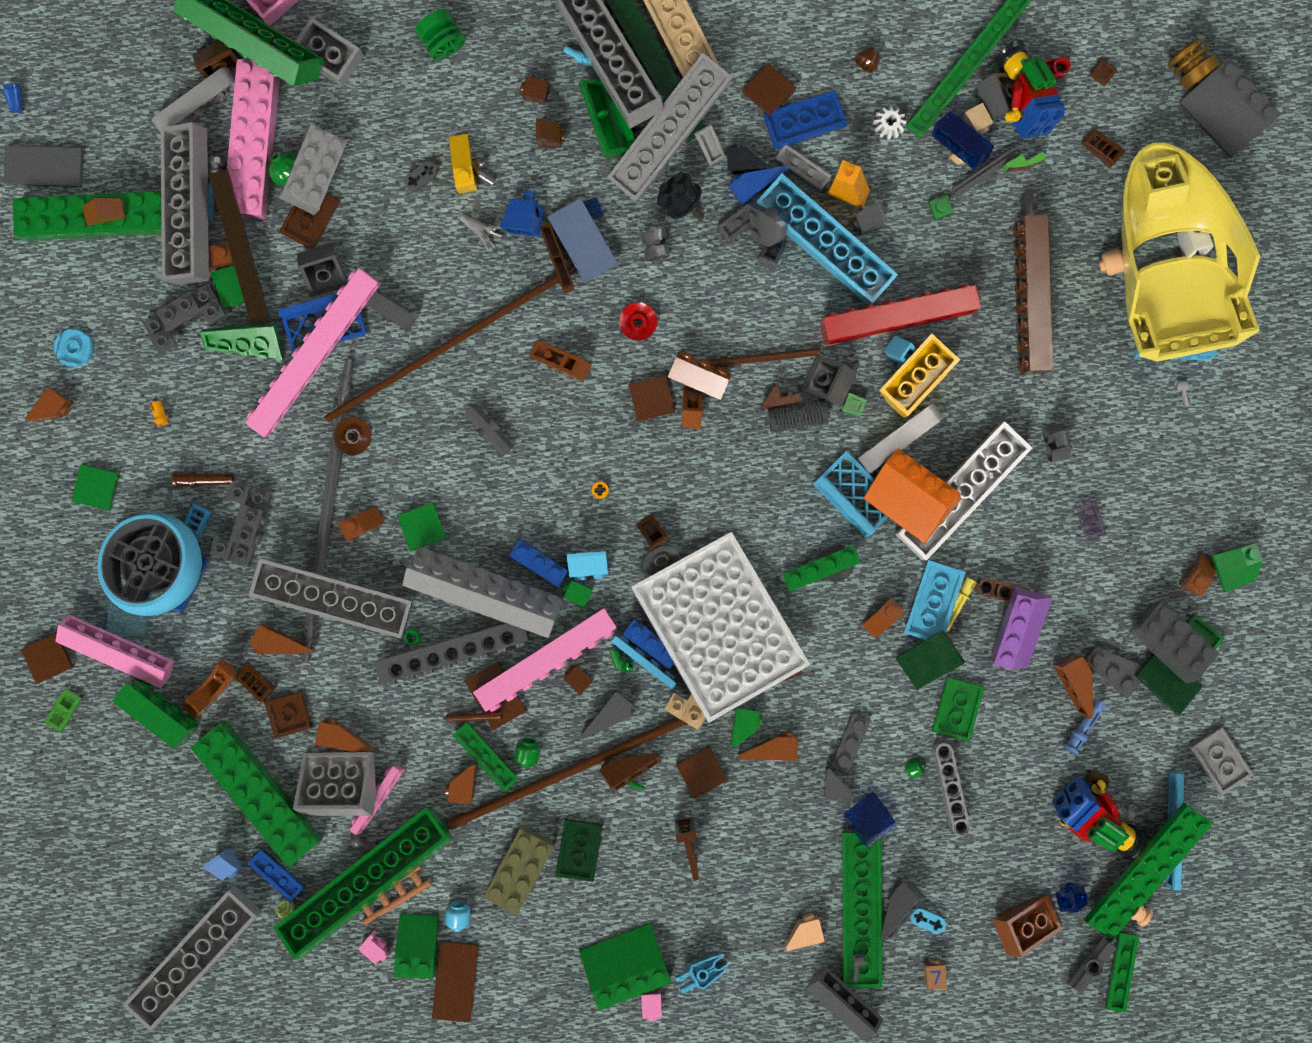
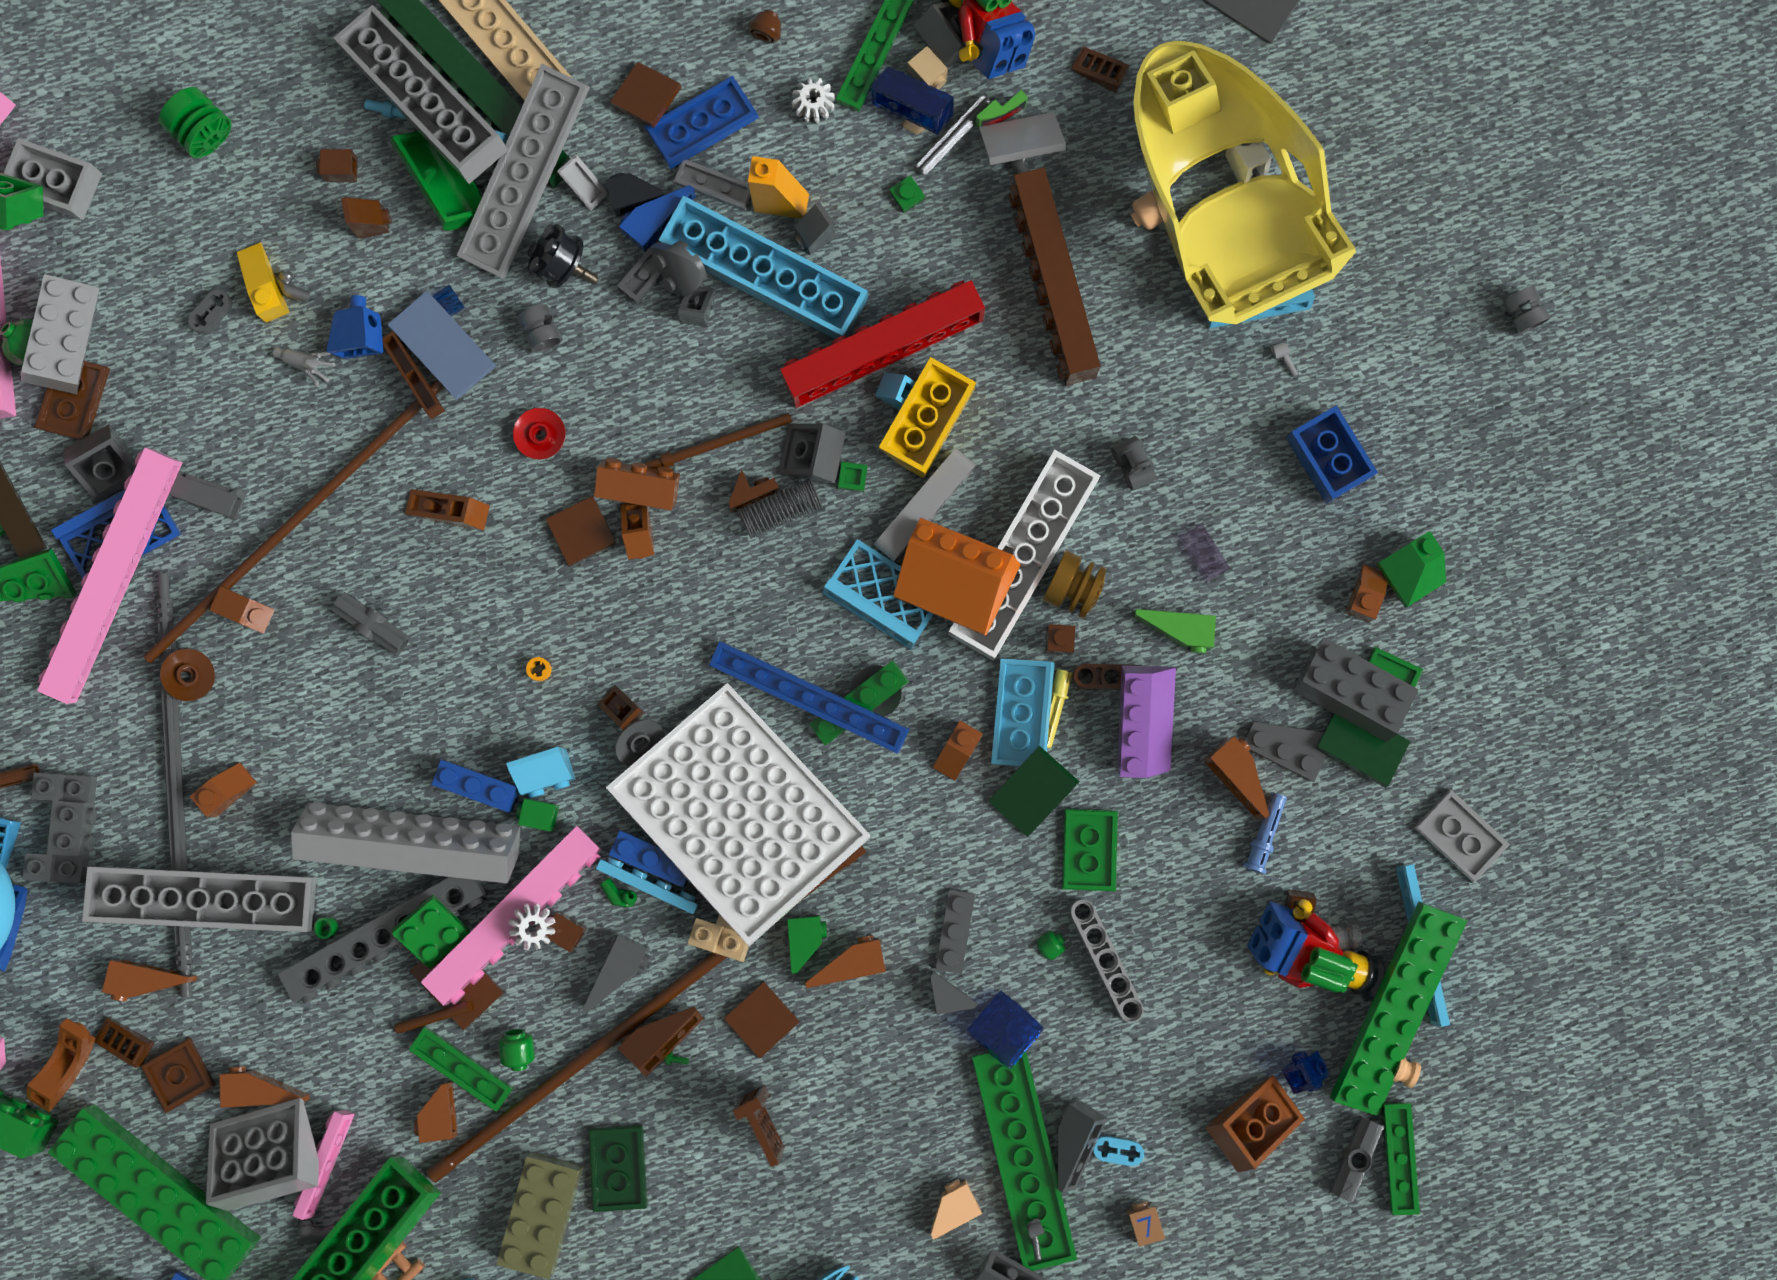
camera: 15 degrees left, 5 degrees down
(401, 399) = (241, 609): none -> dark orange slope
(421, 526) = (307, 774): green tile -> none
(486, 658) = (430, 931): none -> green plate
(565, 674) = (541, 929): none -> white gear
(788, 556) = (809, 697): none -> blue plate
(974, 556) = (1060, 639): none -> reddish brown brick
(998, 523) = (1075, 584): none -> pearl gold wheel
(1034, 187) = (1022, 138): none -> light grey tile
(1063, 570) = (1185, 629): none -> bright green slope
(1199, 471) = (1331, 454): none -> blue brick

